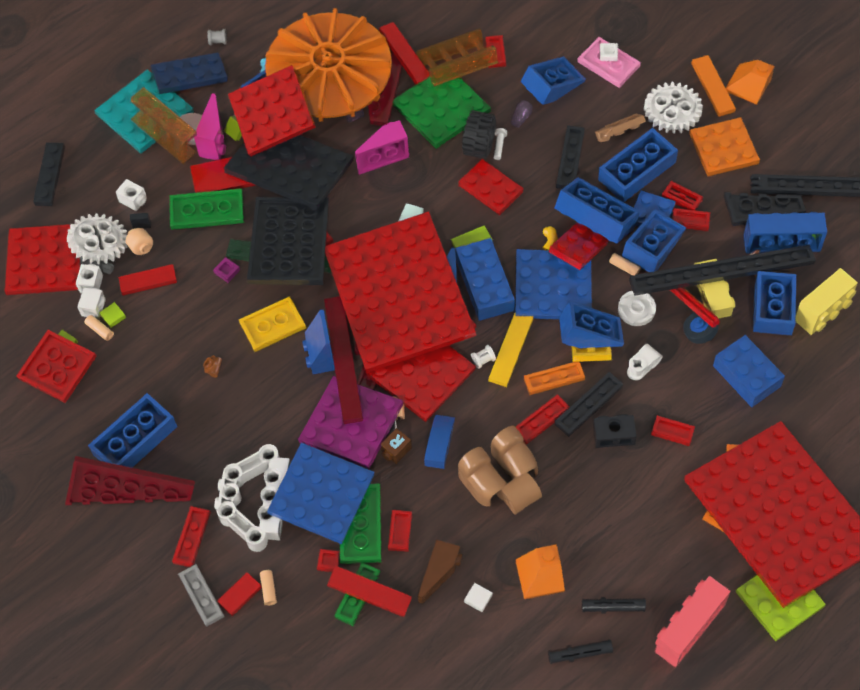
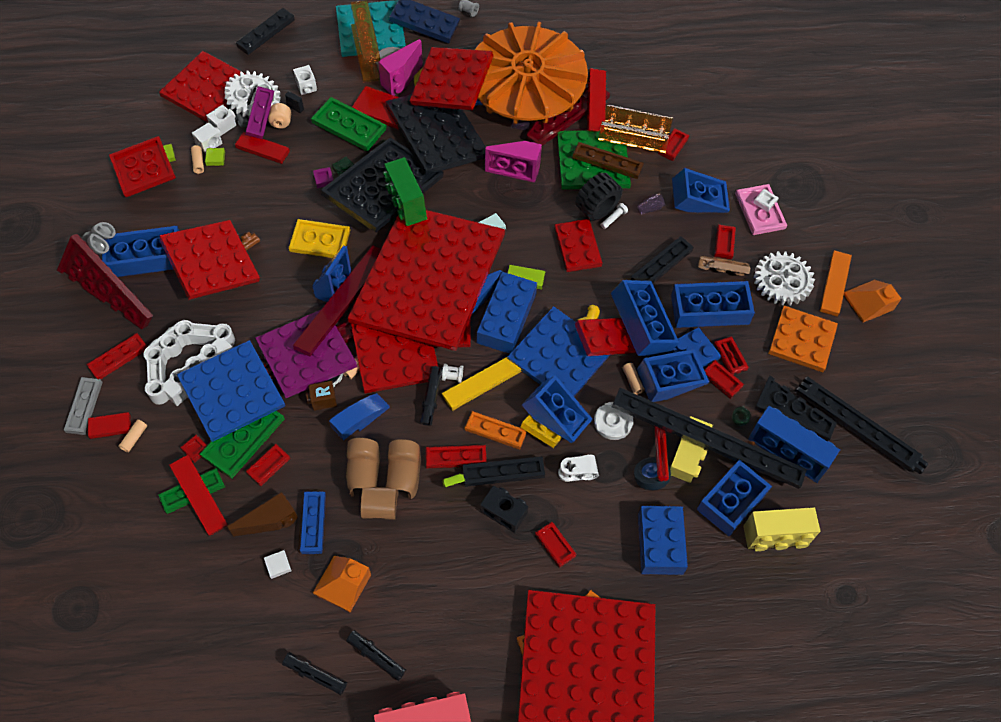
camera: 30 degrees right, 0 degrees up
(88, 449) = (96, 237): none -> light grey piece
(123, 249) = (259, 112): none -> magenta plate
(199, 402) = (209, 259): none -> red plate
(324, 233) = (405, 191): none -> green brick
(457, 99) = (608, 160): none -> reddish brown tile
(478, 546) = (313, 523): none -> blue plate
(481, 381) = (429, 404): none -> black pin
(557, 437) = (453, 480): none -> lime tile
(603, 107) = (725, 241): none -> red tile
(731, 235) = (747, 415): none -> clear green bush

